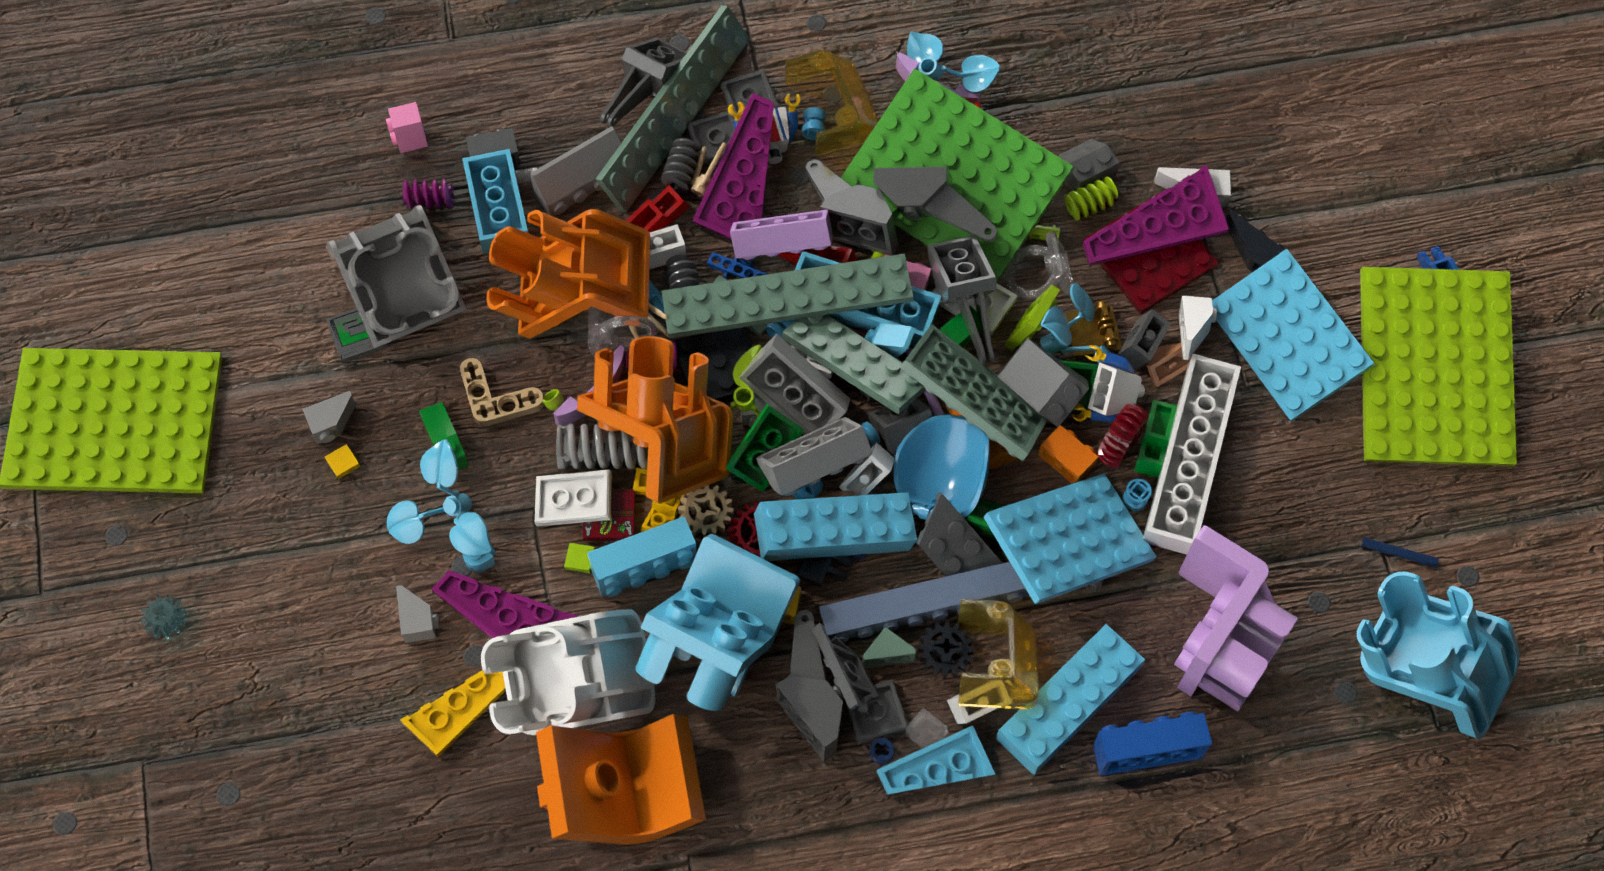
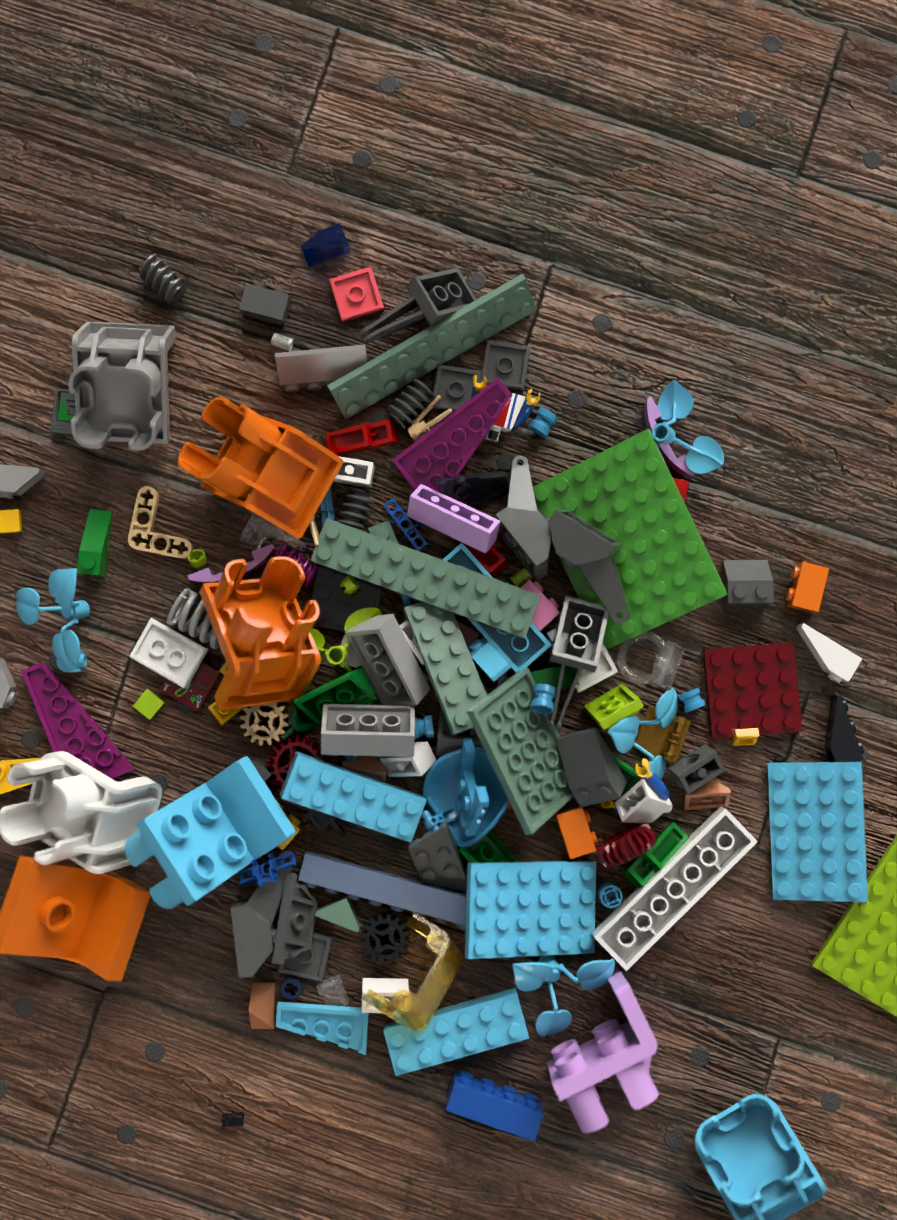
camera: 30 degrees right, 20 degrees up
(380, 176) = (160, 279): none -> dark grey piece
(406, 127) = (203, 247): bright pink brick -> none
(428, 194) = (190, 319): magenta piece -> none
(494, 195) = (241, 355): medium azure brick -> none
(522, 75) = (325, 245): none -> clear blue slope
(574, 104) = (356, 294): none -> coral tile
(643, 557) = (187, 737): medium azure brick -> none
(718, 343) = (350, 585): none -> lime hinge
(738, 491) = (297, 721): none -> dark green piece
(788, 201) = (474, 488): none -> black wing
(799, 631) = (273, 869): none -> blue piece
(856, 118) = (585, 440): clear yellow windscreen -> none
(862, 786) = (262, 1005): none -> nougat slope
(947, 459) = (470, 797): none -> dark azure wing
(963, 340) = (543, 698): none -> dark azure wheel
(1039, 231) = (677, 628): lime pin -> none
(1091, 197) = (732, 617): lime piece -> none
(1100, 286) = (691, 700): none -> dark azure wheel
(1112, 587) = (532, 975): none -> medium azure plant
(1141, 141) = (807, 587): none -> orange brick
(1169, 219) = (790, 677): magenta wing -> none
(1170, 291) = (745, 736): none -> yellow tile
(1195, 322) = (748, 775): white slope -> none
(1399, 552) = (787, 1052): dark blue bar -> none

